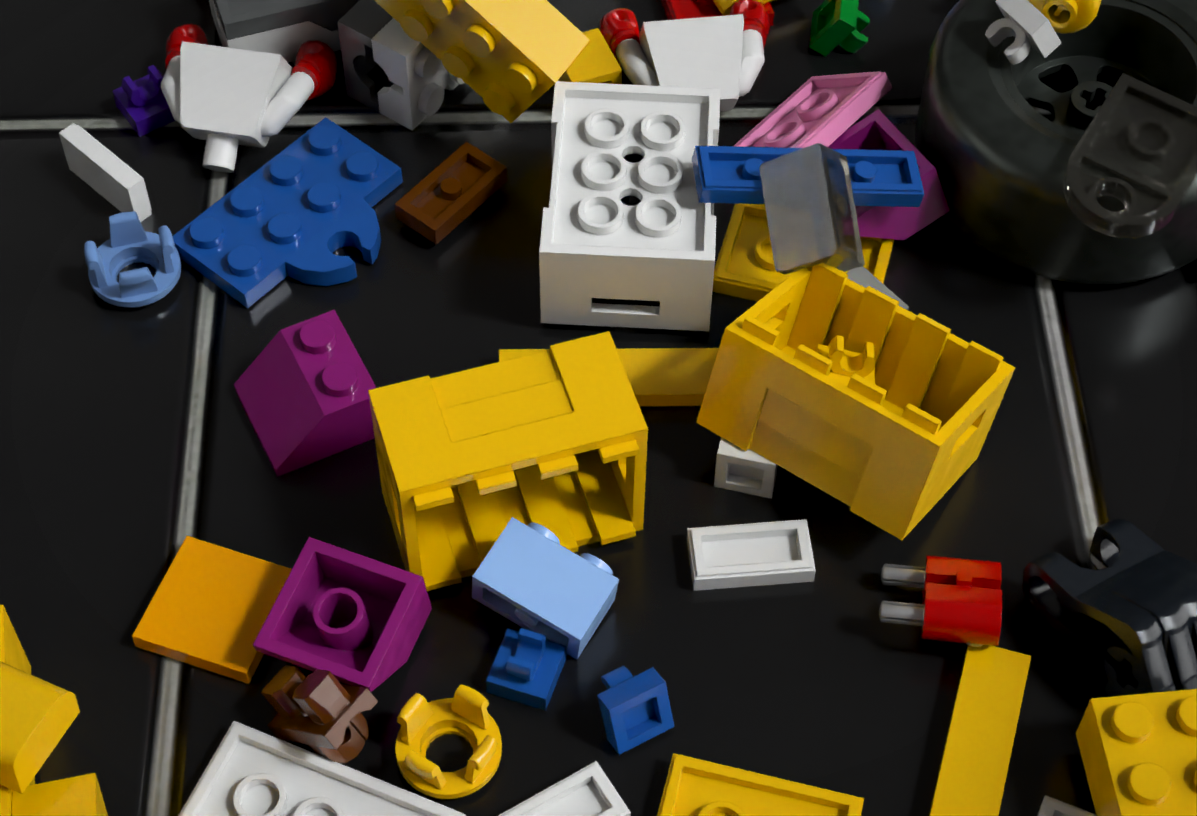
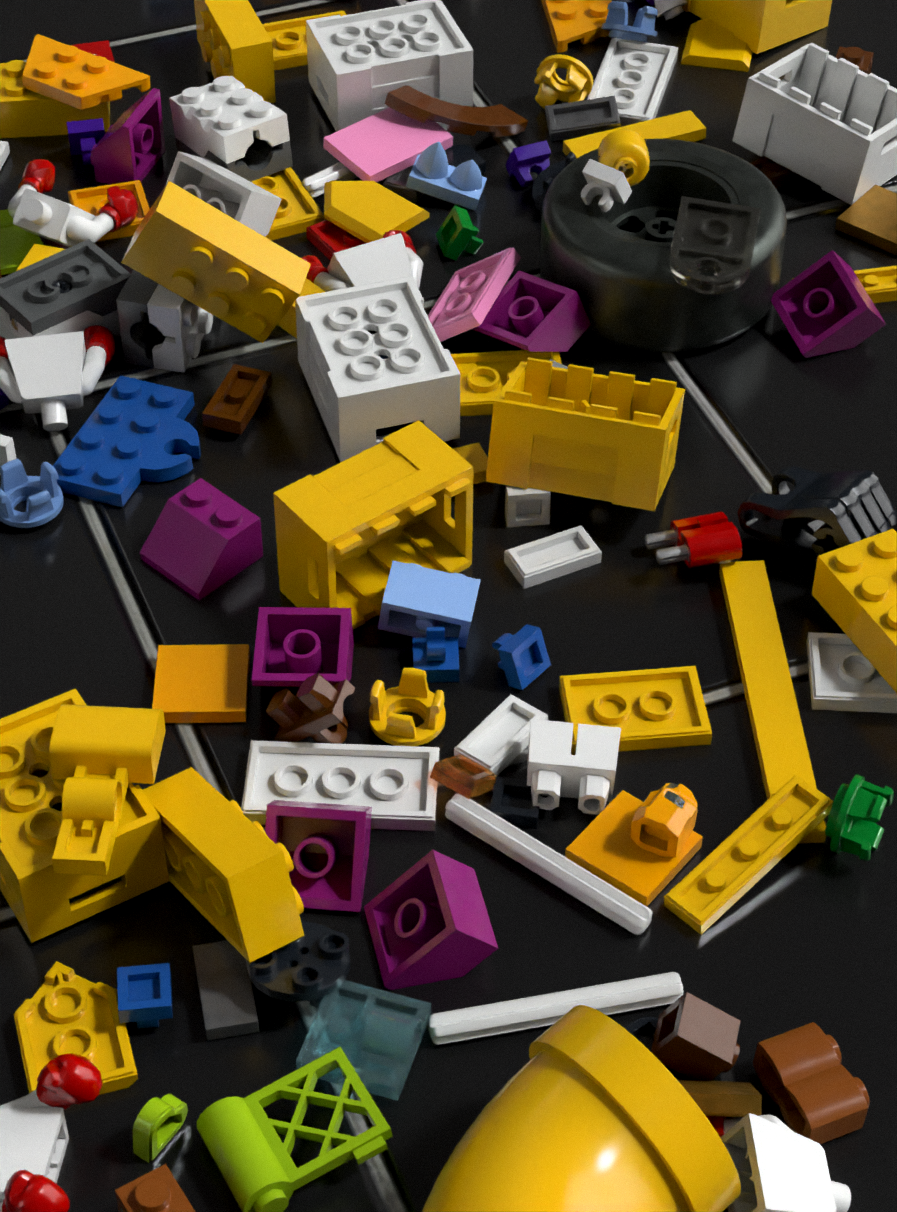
camera: 20 degrees left, 10 degrees down
(811, 210) = (511, 326): clear smoke panel -> none
(876, 176) = (496, 312): blue tile -> none

